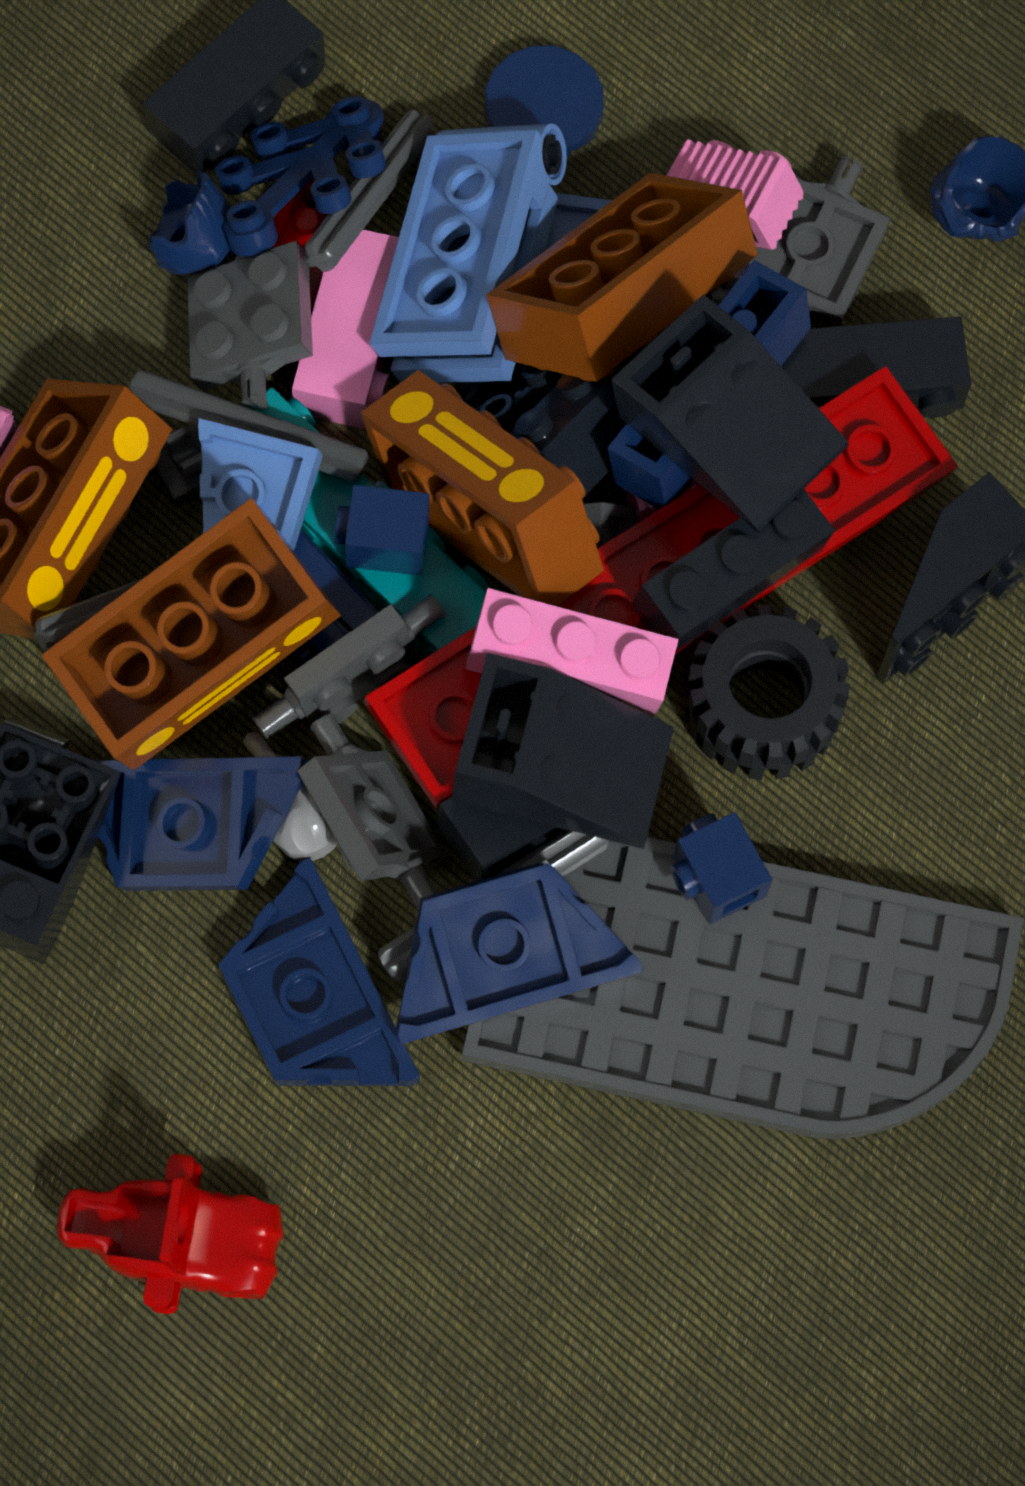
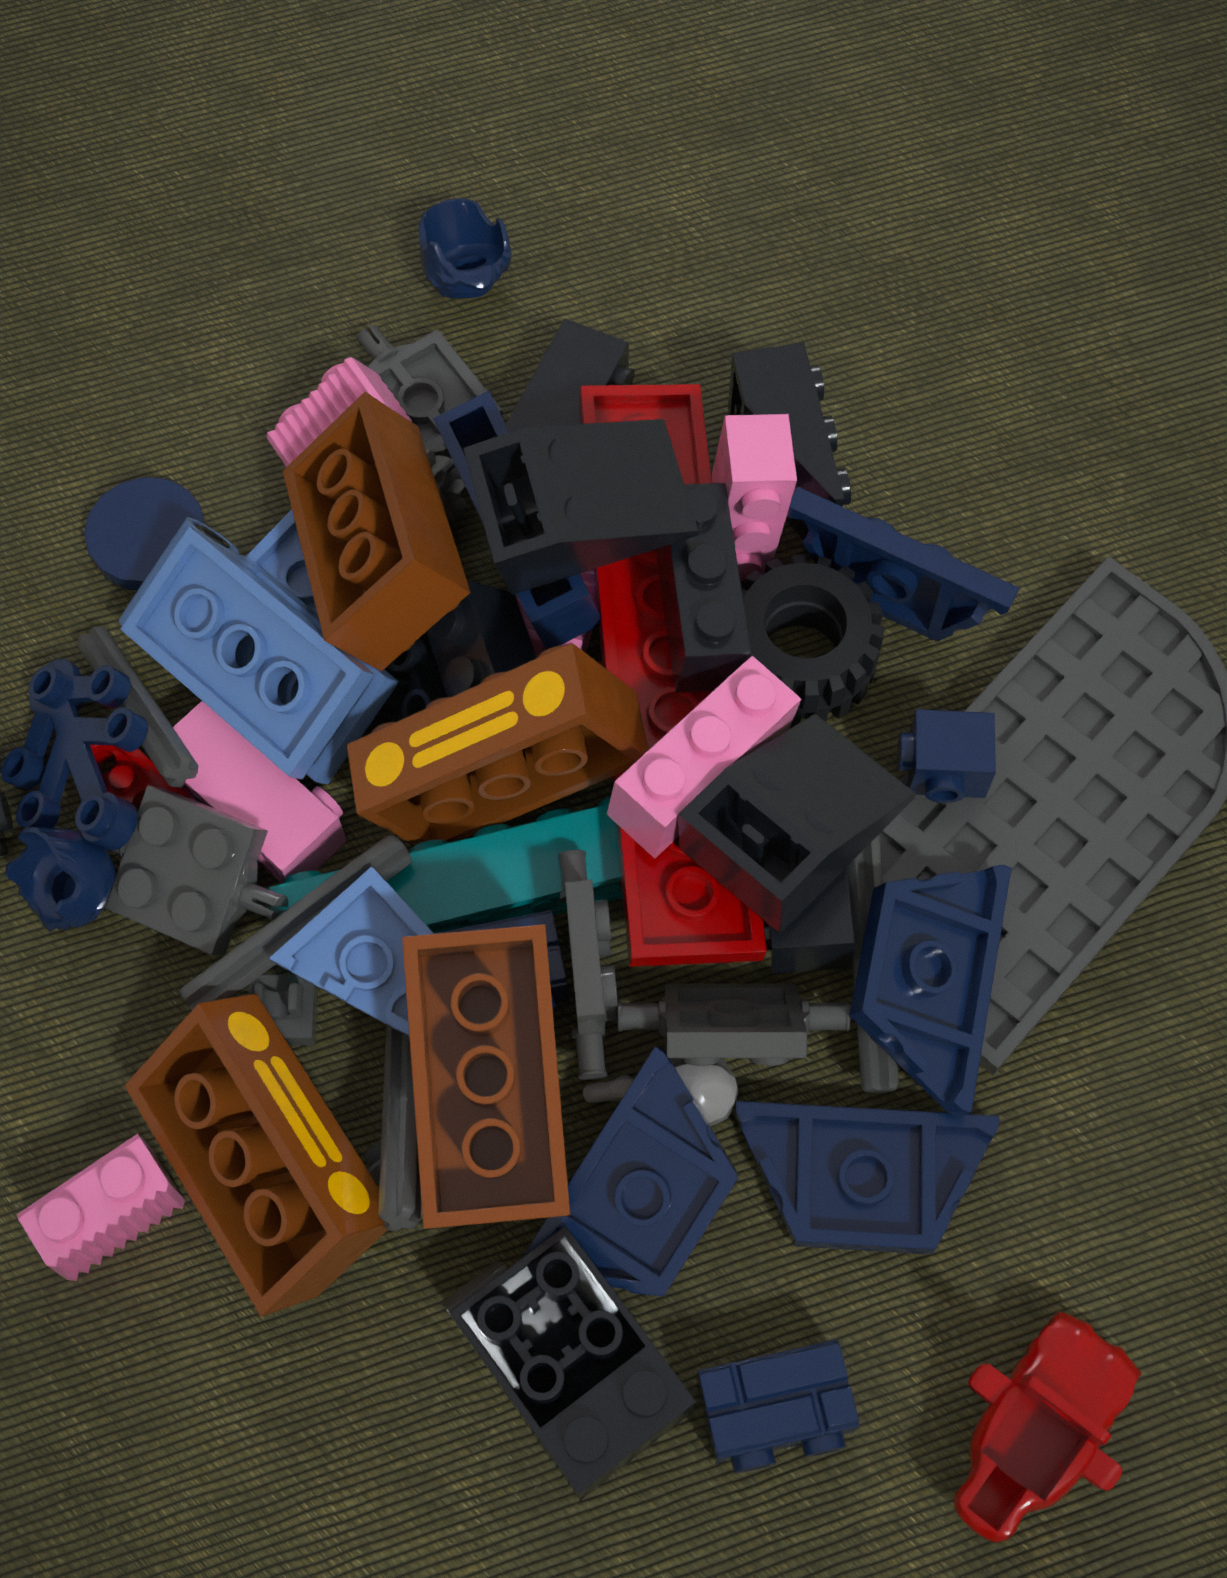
camera: 55 degrees left, 5 degrees down
(78, 1018) = (778, 1404): none -> dark blue brick
(384, 529) = (478, 856): dark blue brick -> none
(859, 565) = (760, 480): none -> bright pink brick
(873, 701) = (911, 580): none -> dark blue wing

